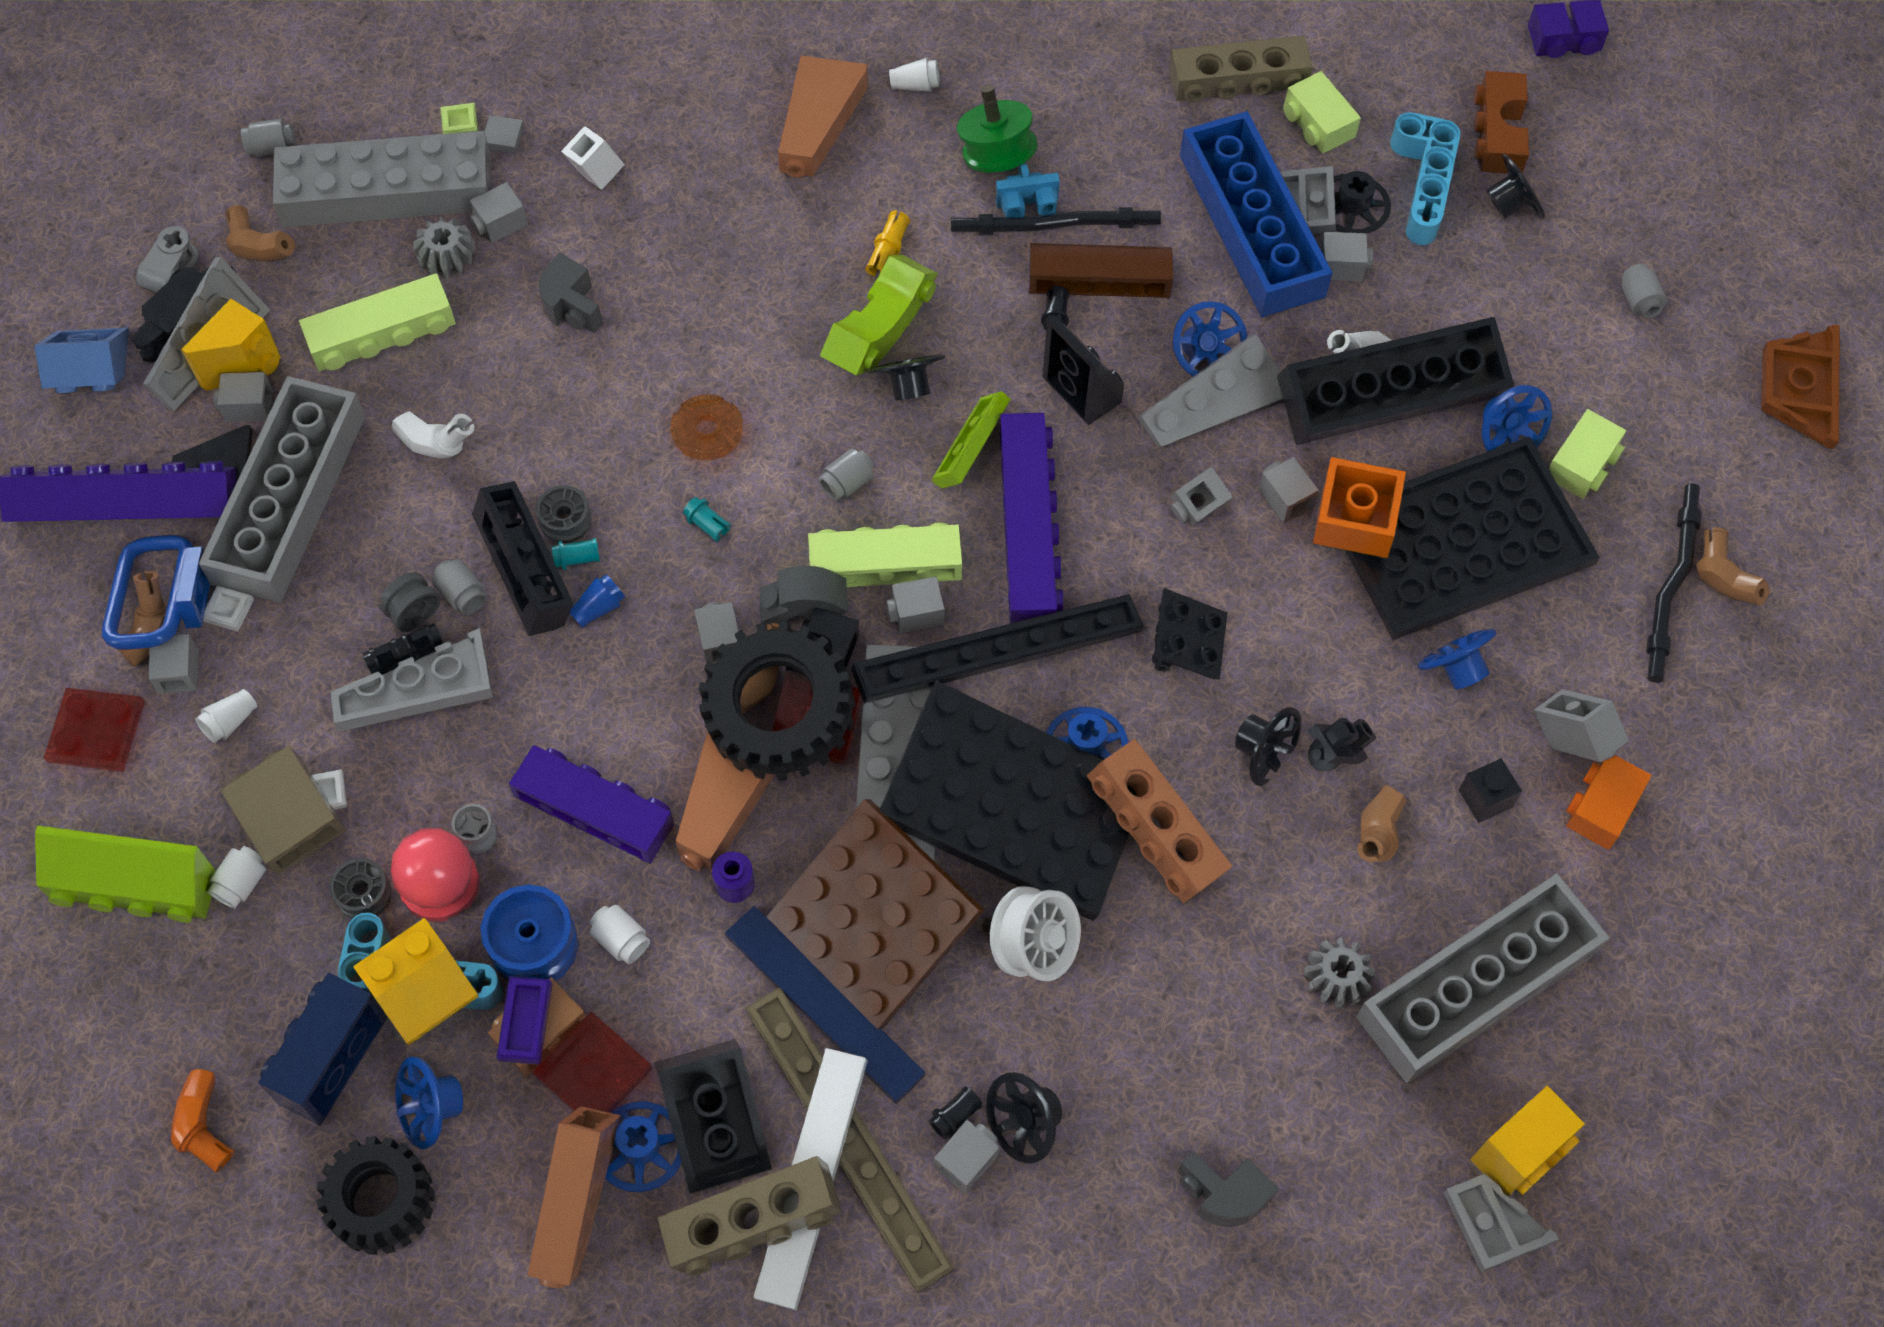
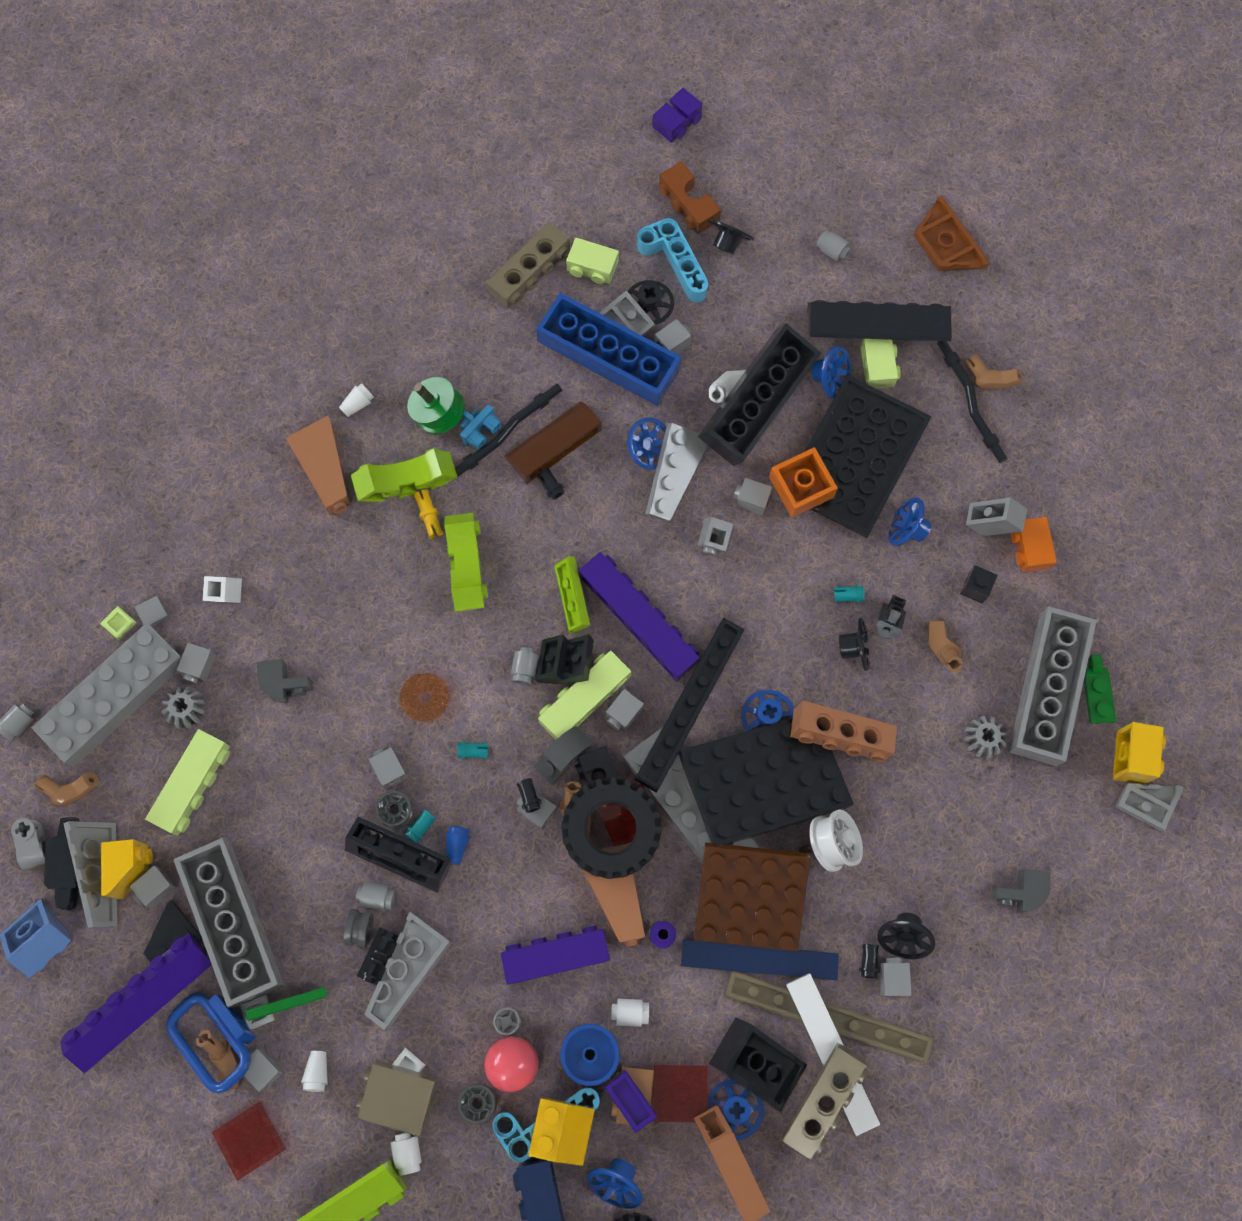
camera: 40 degrees left, 10 degrees up
(262, 616) = (285, 1004): none -> green tile
(432, 439) = (282, 825): white arm -> none
(597, 465) = (387, 767): none -> light grey brick
(715, 609) = (528, 794): none -> black pin
(890, 186) = (403, 478): none -> lime brick
(897, 499) = (565, 660): none -> black slope
(908, 376) = (510, 585): black wheel -> none
(1079, 373) = (599, 514): black slope -> none
(1189, 635) = (770, 616): black hinge -> none
(1312, 683) = (849, 593): none -> teal pin
(1543, 1040) = (1099, 692): none -> green hinge
(1625, 402) = (879, 321): none -> black slope

